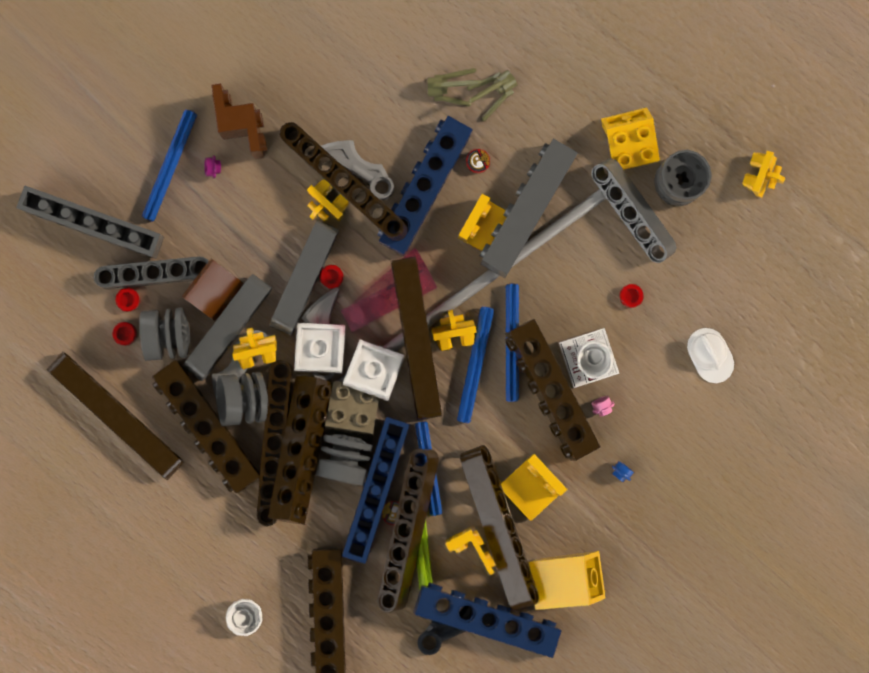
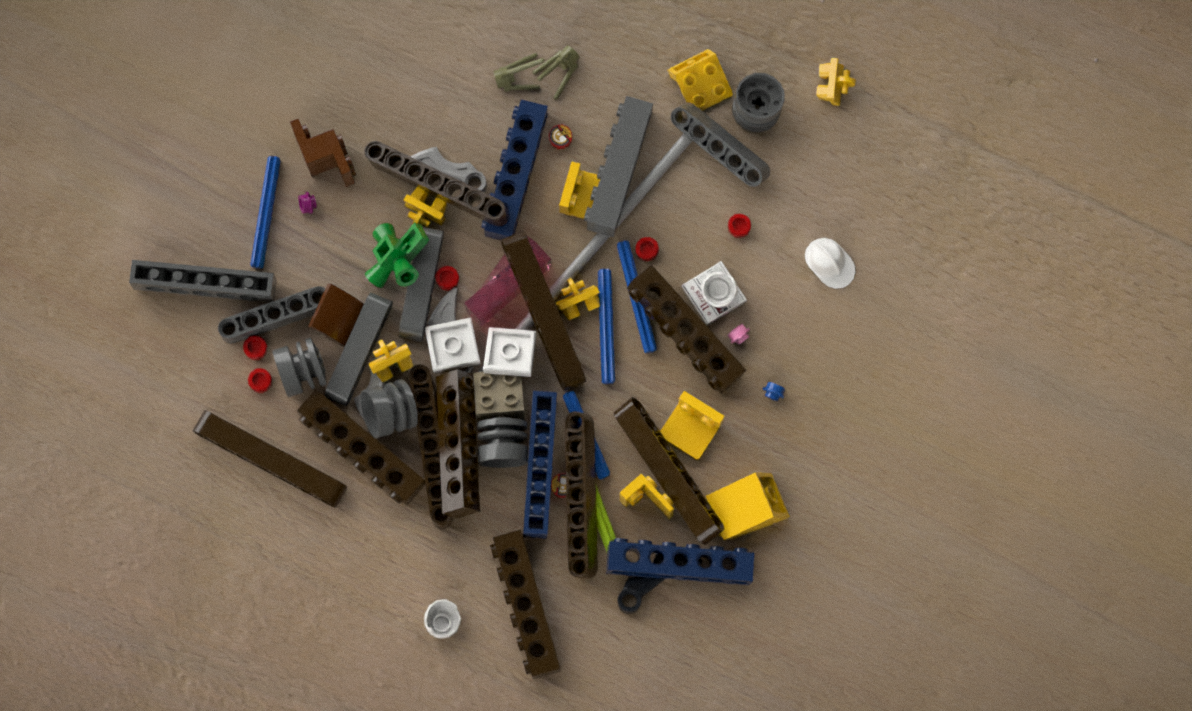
camera: 10 degrees left, 10 degrees down
(285, 244) = (396, 254): none -> green brick
(534, 296) = (647, 249): none -> red tile

